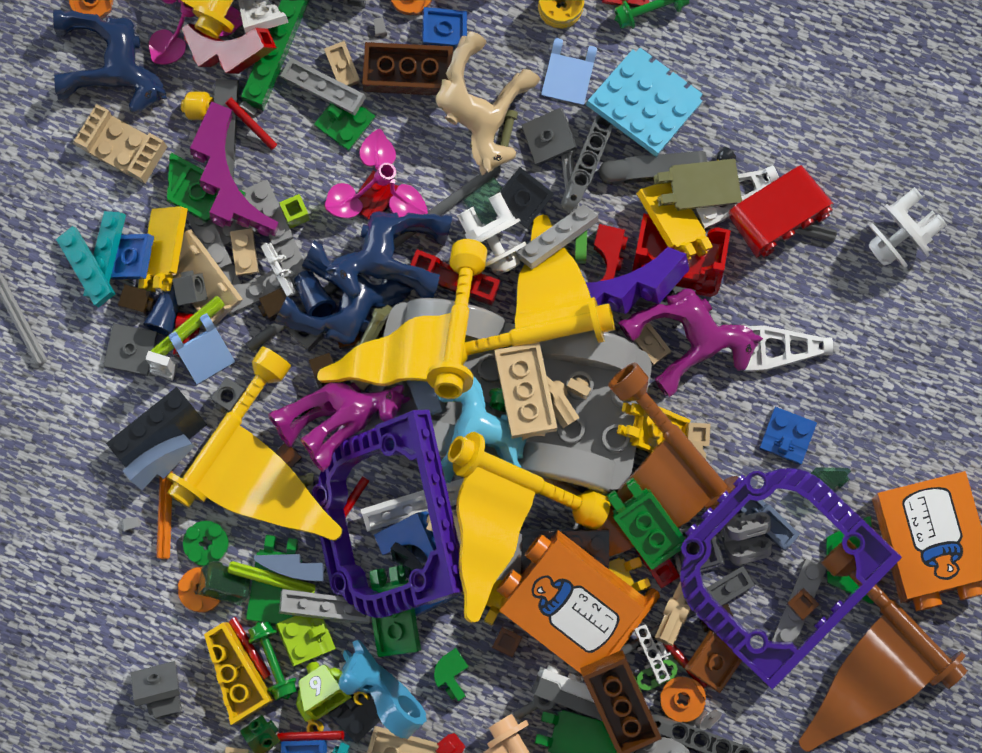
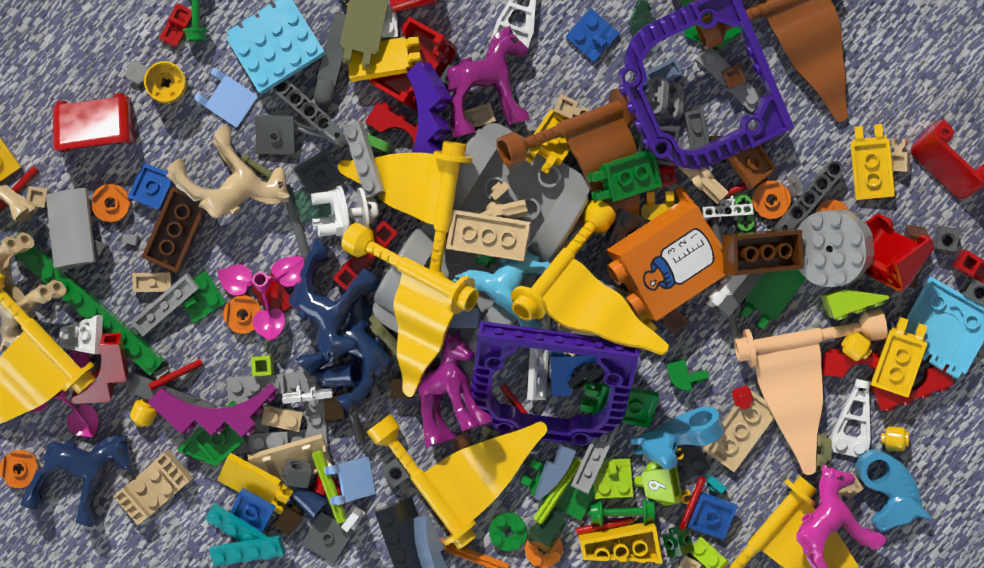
camera: 65 degrees left, 10 degrees up
(344, 159) = (236, 305): none -> orange plate

